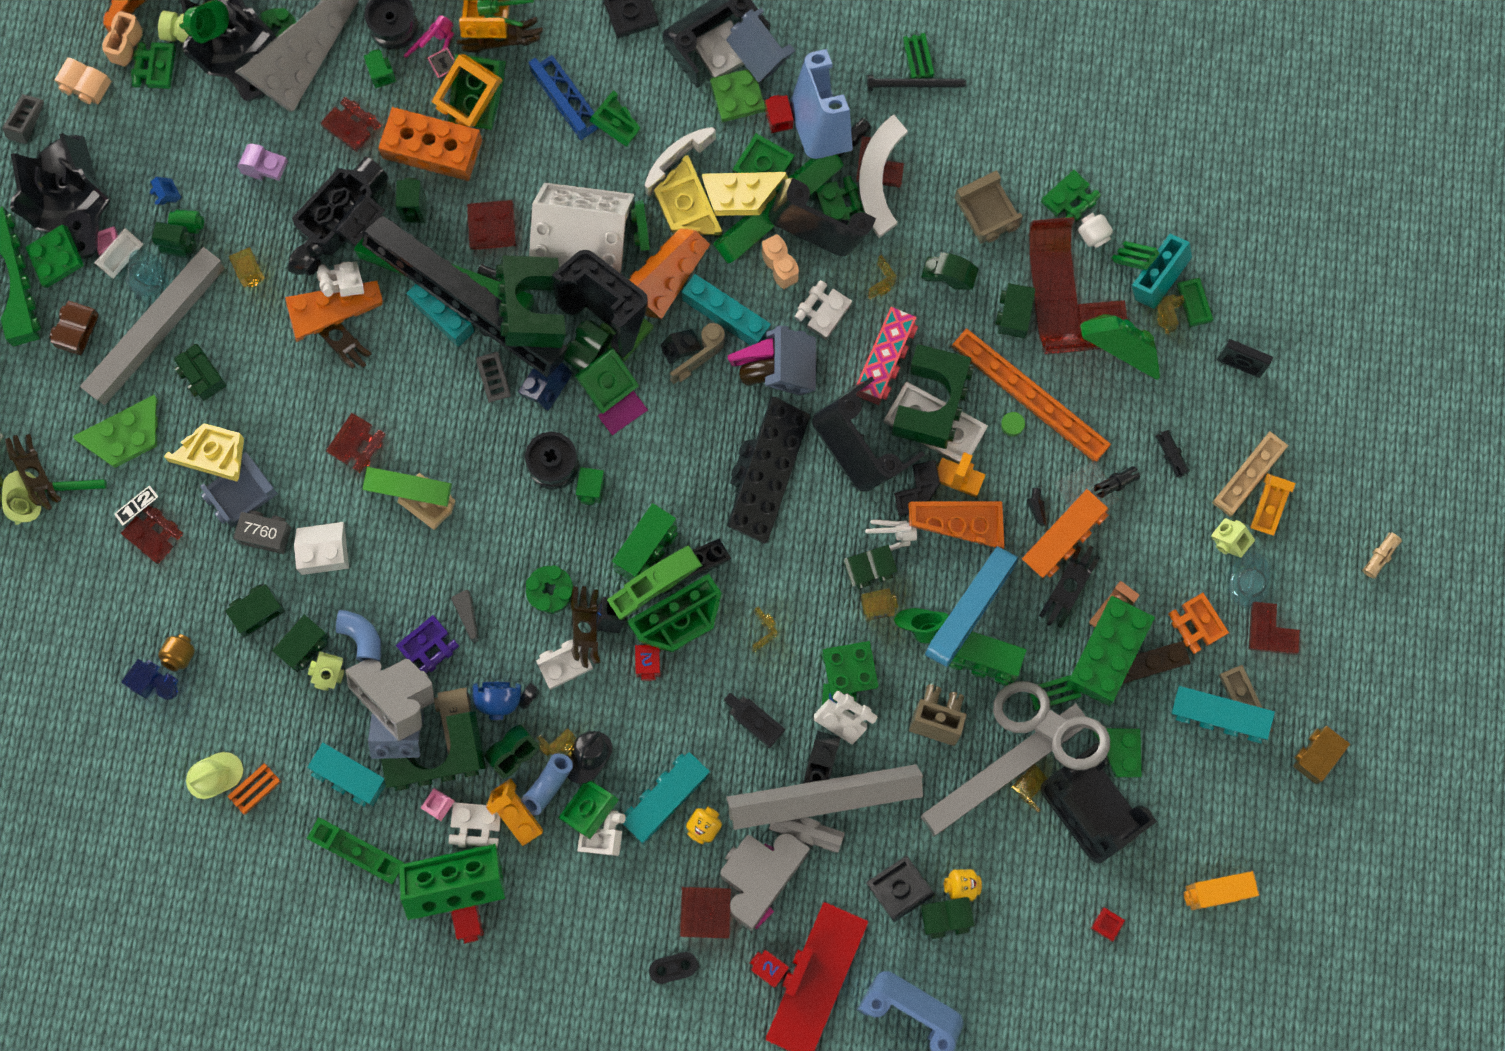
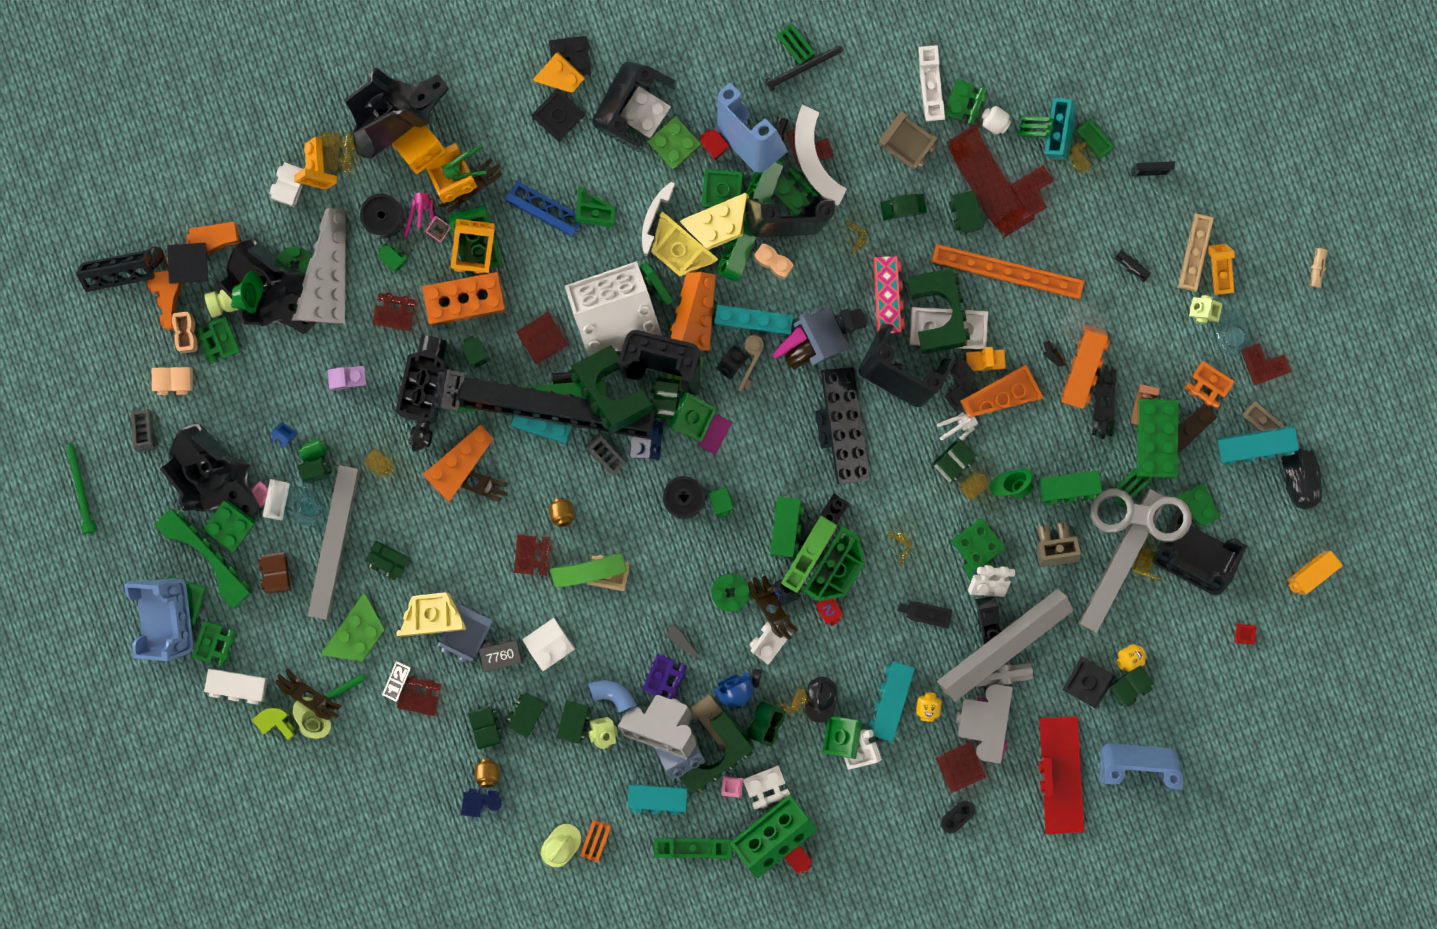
camera: 25 degrees left, 10 degrees up
(202, 601) = (485, 727): none -> dark green brick
(343, 279) = (460, 434): white plate -> none
(412, 413) = (561, 512): none -> pearl gold head
(513, 812) = (789, 765): light orange bracket -> none
(547, 783) = (803, 734): medium blue cylinder -> none
(757, 46) = (673, 102): sand blue panel -> none
(768, 968) = (1024, 784): red brick -> none
(829, 313) = (828, 282): white plate -> none
(829, 363) = (850, 320): none -> black bracket
(971, 606) = (1044, 458): dark azure beam -> none
(1012, 424) = (1005, 300): bright green tile -> none
(1044, 160) = (931, 83): none -> white slope
(1116, 482) = (1102, 308): black pin -> none
(1123, 341) = (1057, 201): green wedge -> none
(1257, 779) = (1303, 479): none -> black hair
(1320, 754) = (1339, 438): pearl gold brick -> none

